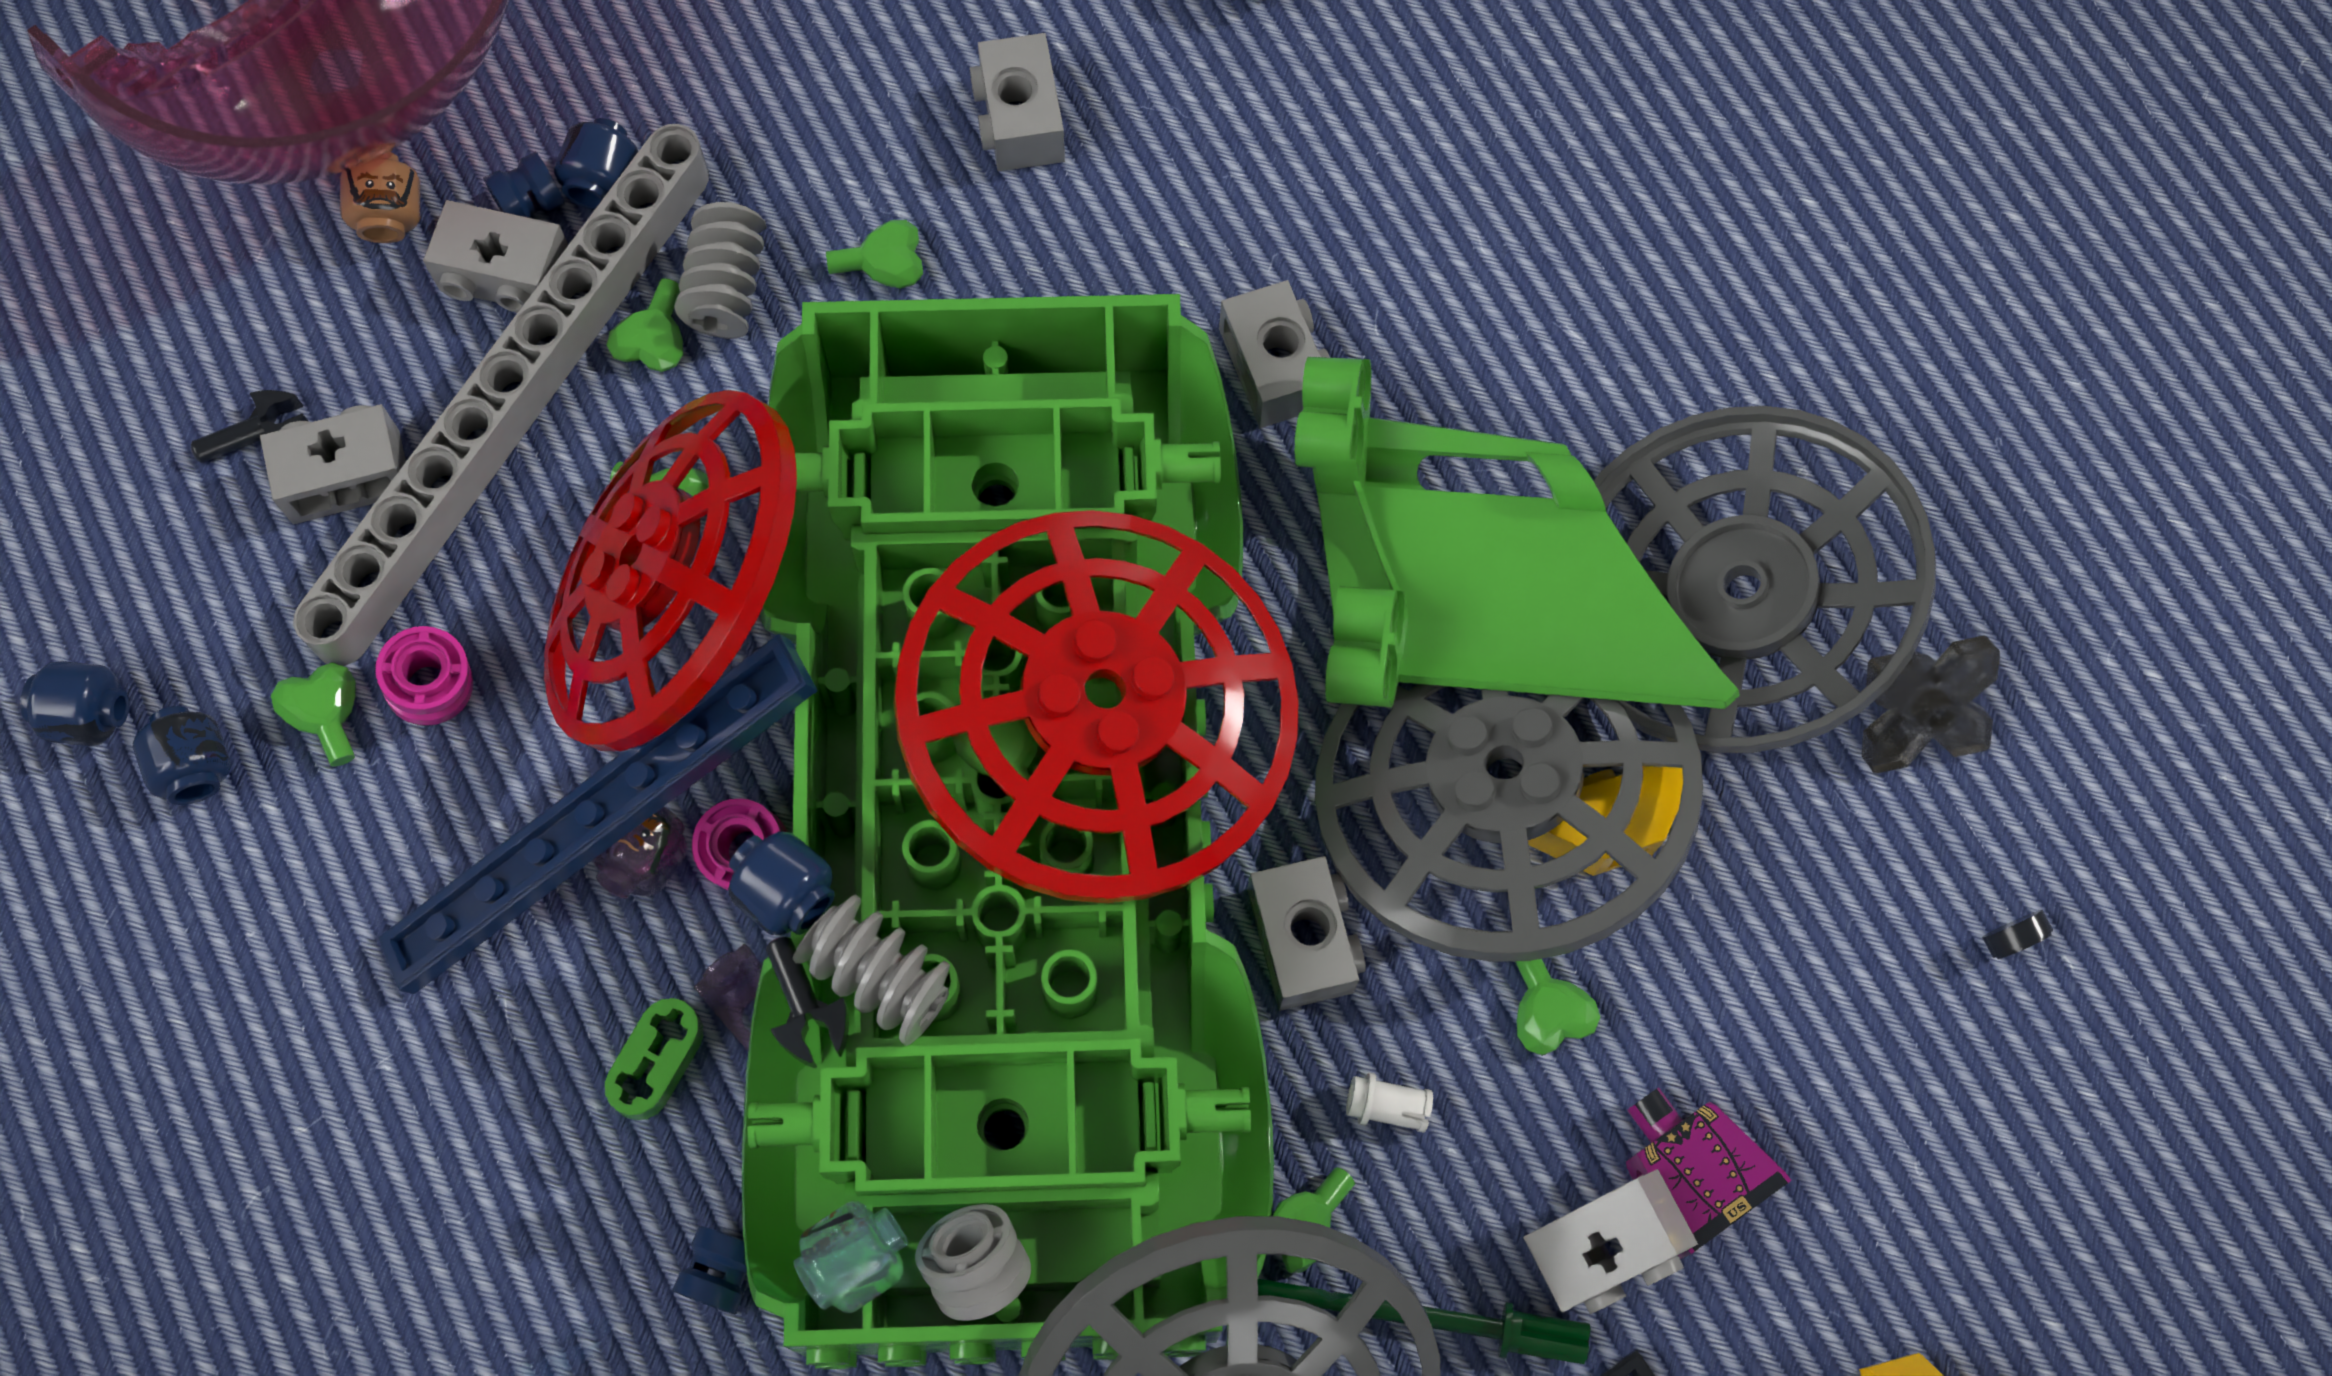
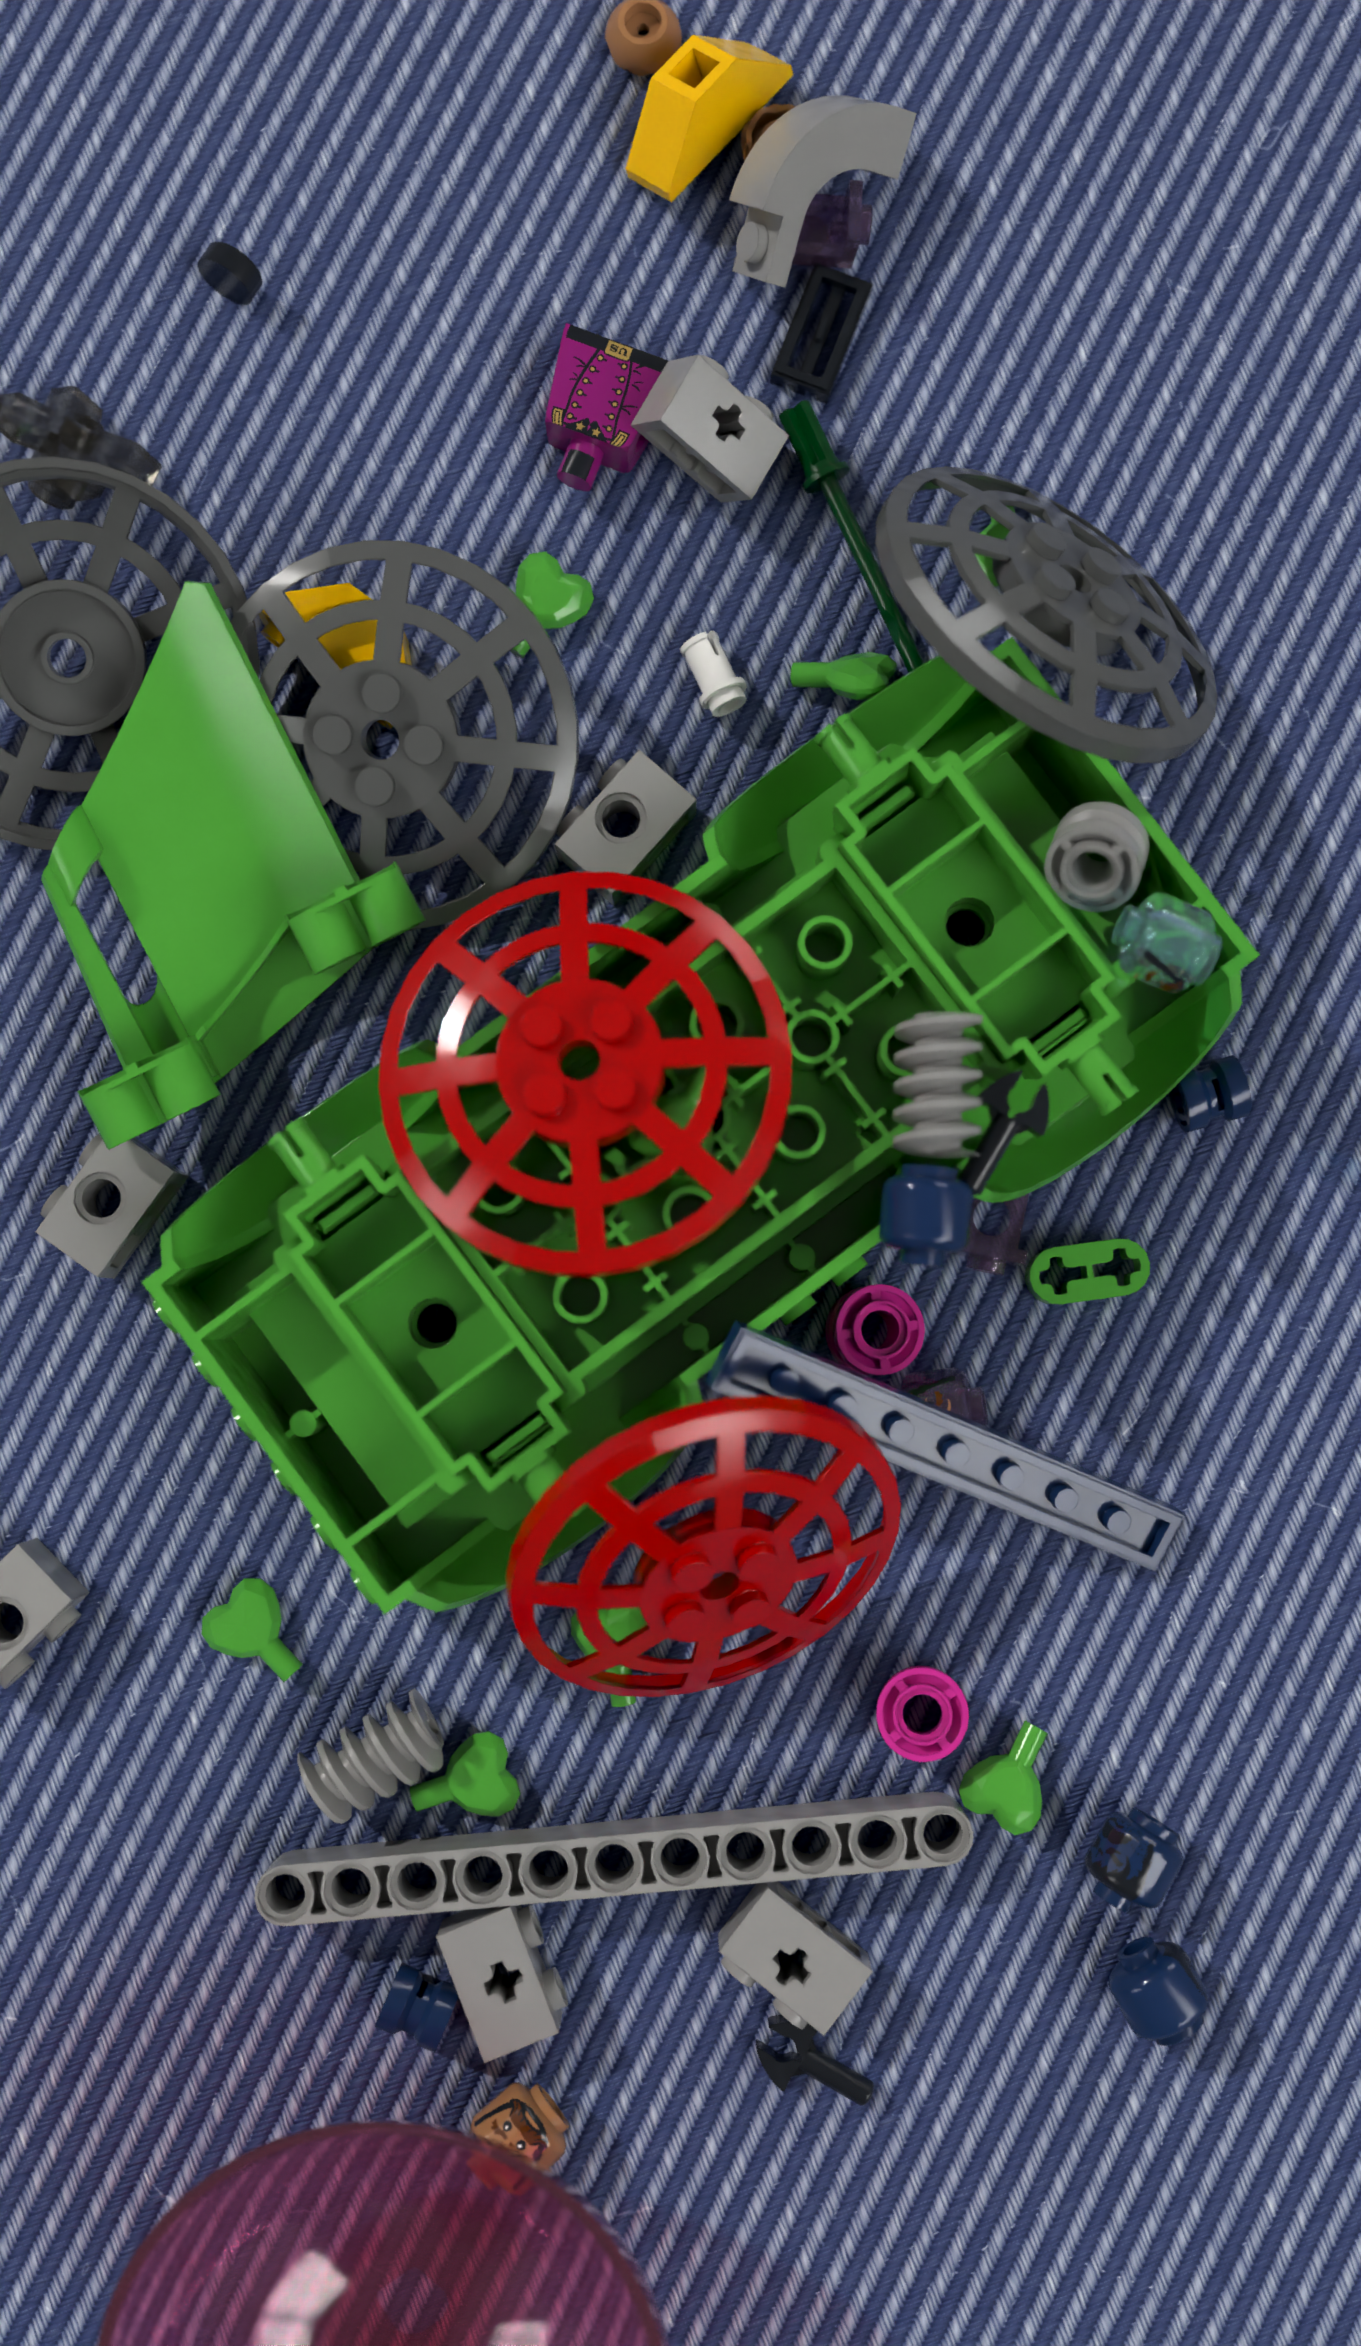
camera: 120 degrees left, 15 degrees up
(593, 160) = (345, 1962): dark blue head -> none

